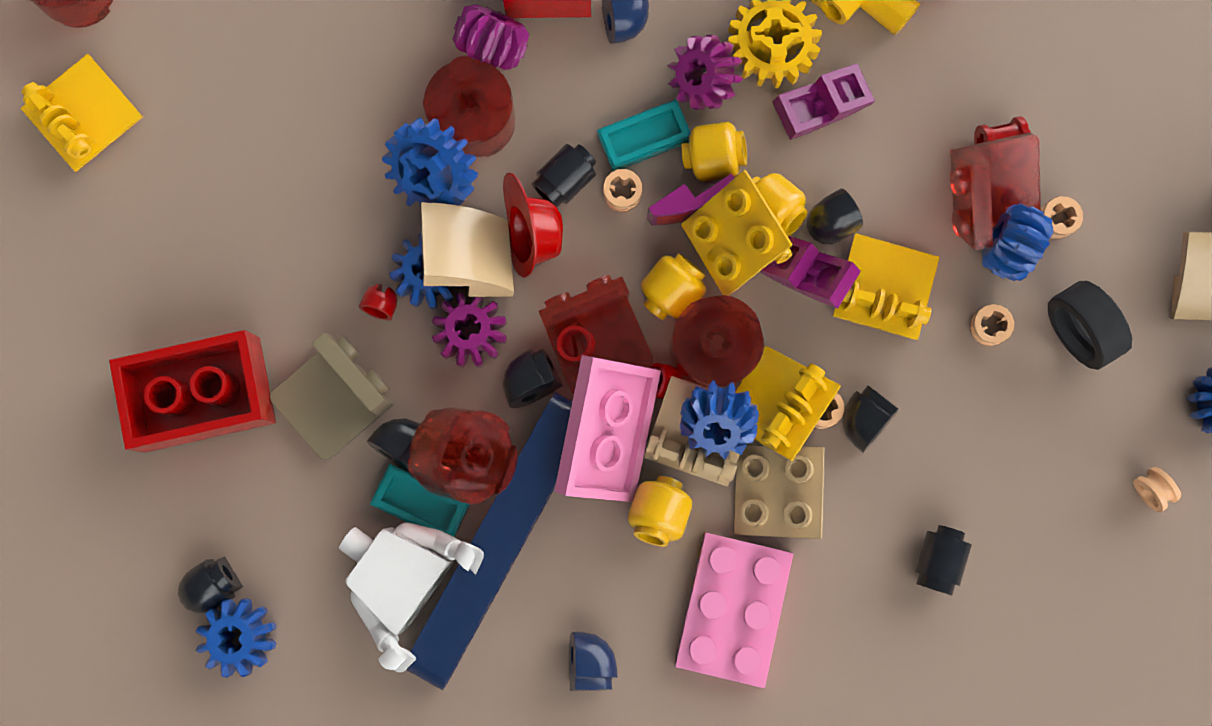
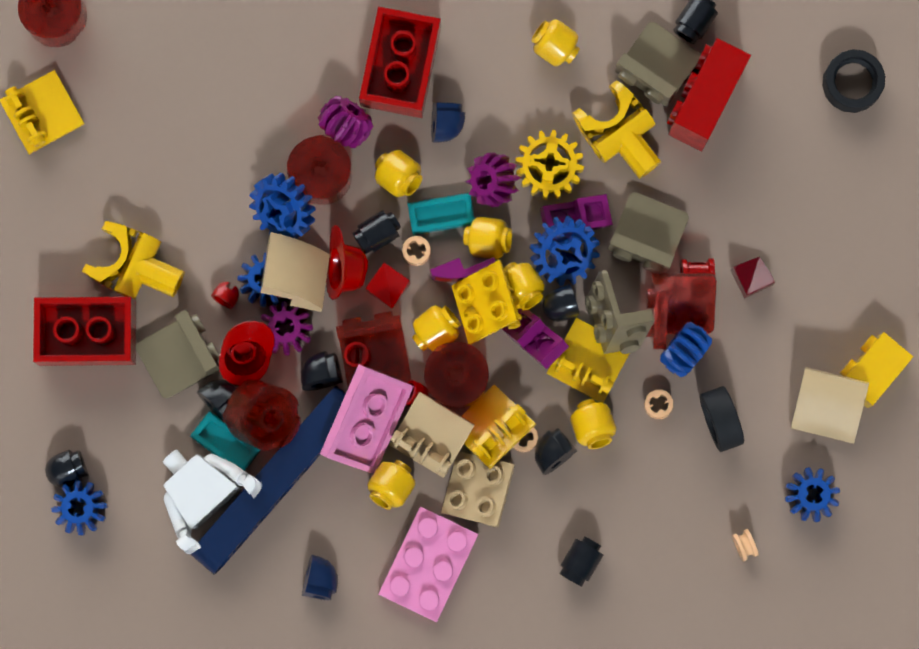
camera: 15 degrees right, 0 degrees up
(247, 287) = (136, 265): none -> yellow connector
(421, 372) = (246, 352): none -> red piece
(576, 92) = (398, 173): none -> yellow head
(595, 243) = (388, 285): none -> red slope
(719, 420) = (443, 429): blue gear -> none
(831, 125) = (566, 237): none -> blue gear
(909, 223) = (612, 329): none -> dark tan bracket
(914, 370) = (593, 424): none -> yellow head
(925, 102) = (648, 233): none -> dark tan bracket
(1073, 211) = (722, 346): light nougat bush -> none
(1074, 131) = (752, 276): none -> dark red slope

